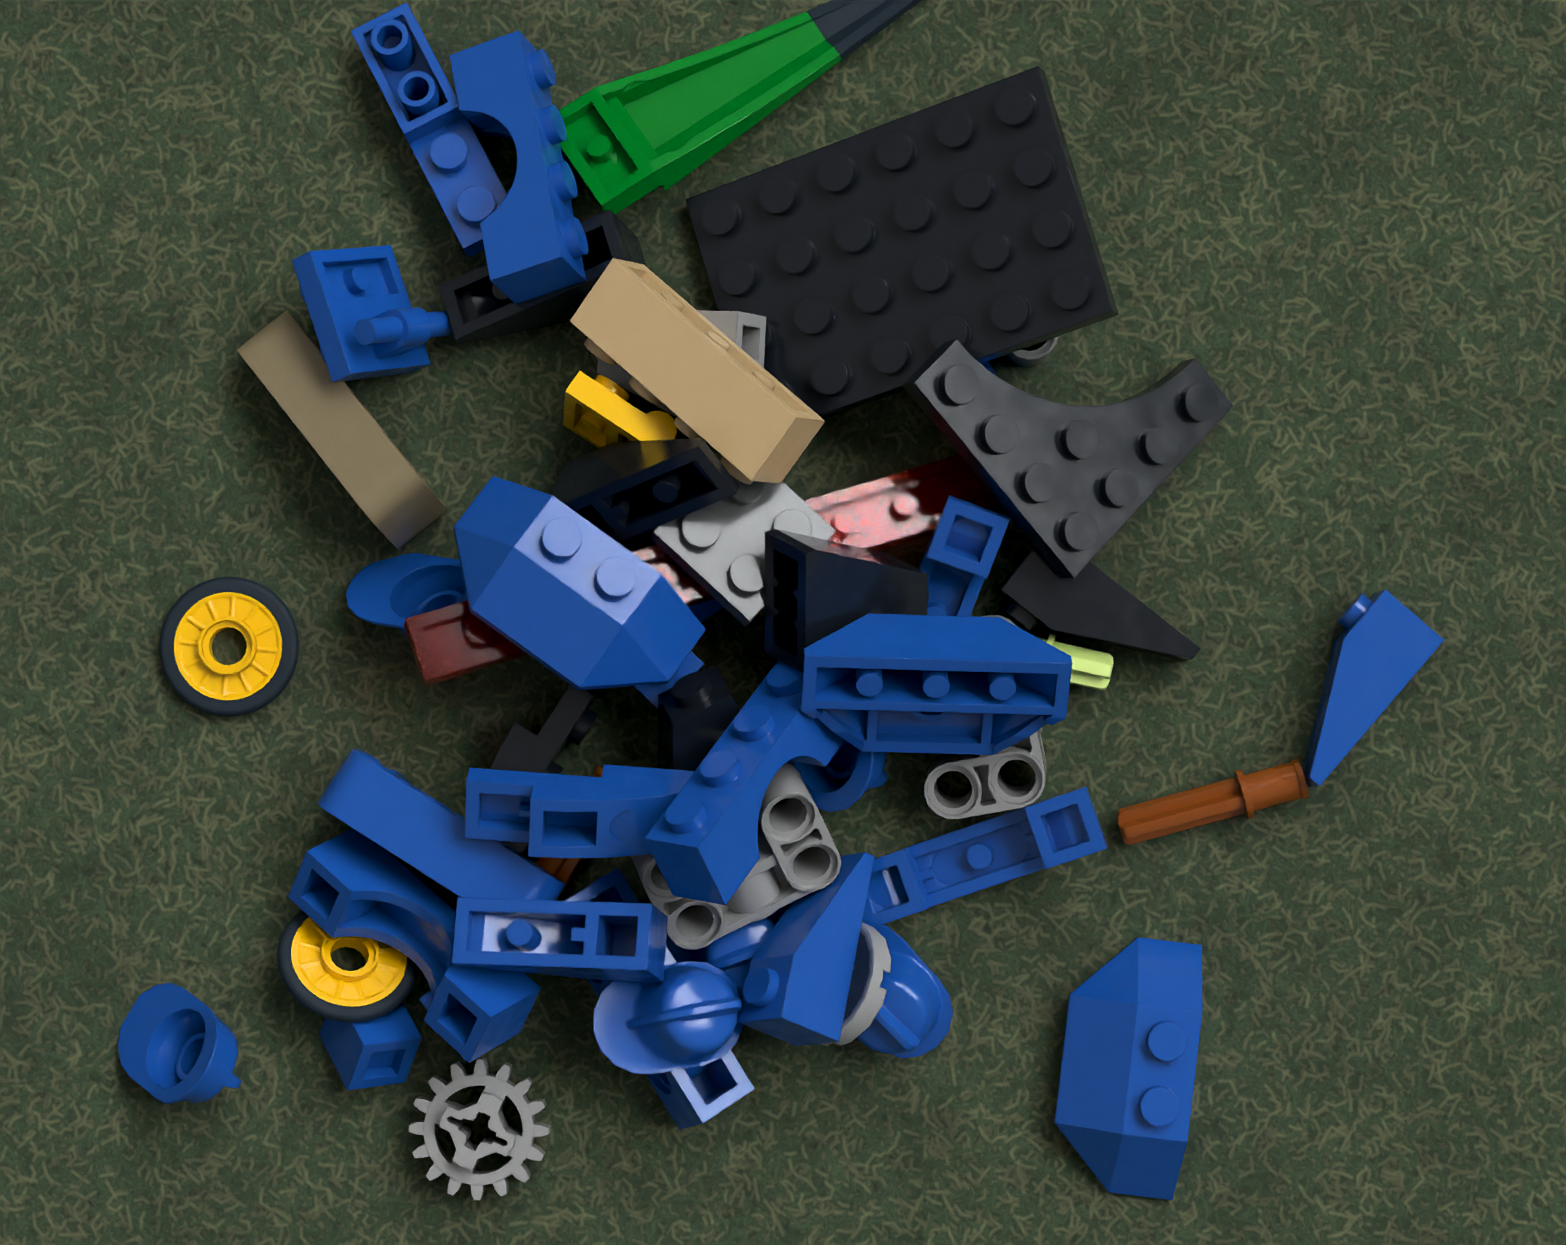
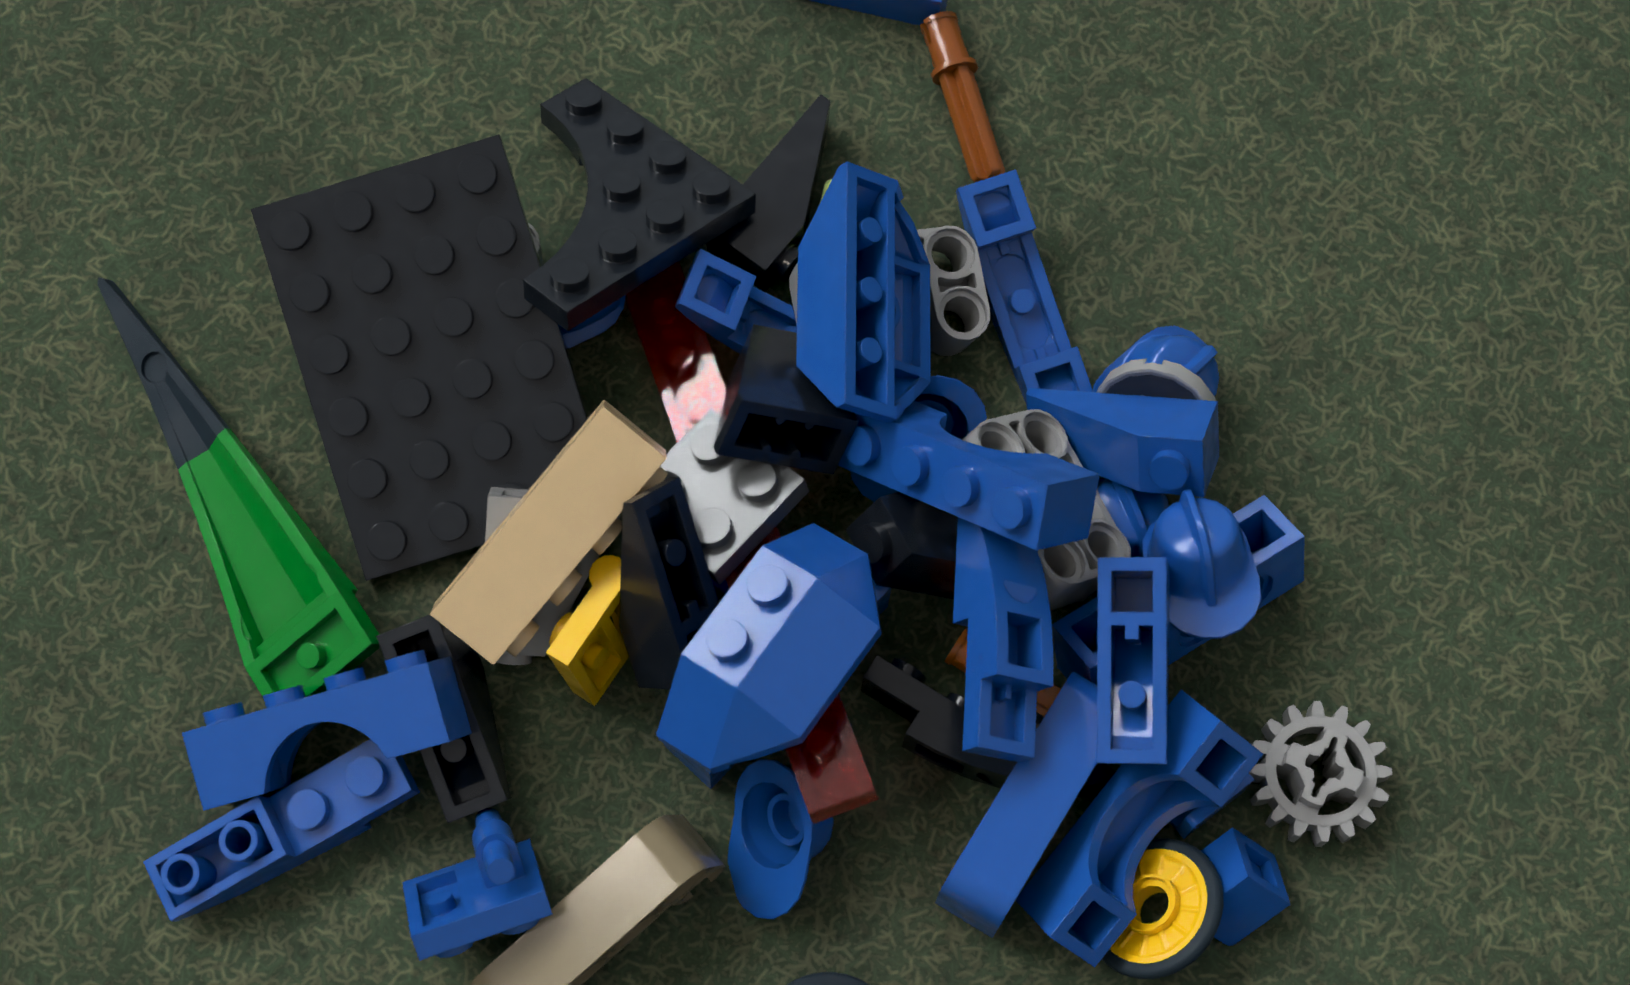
camera: 90 degrees left, 15 degrees down
(1133, 1066) = (1214, 161): blue wedge -> none

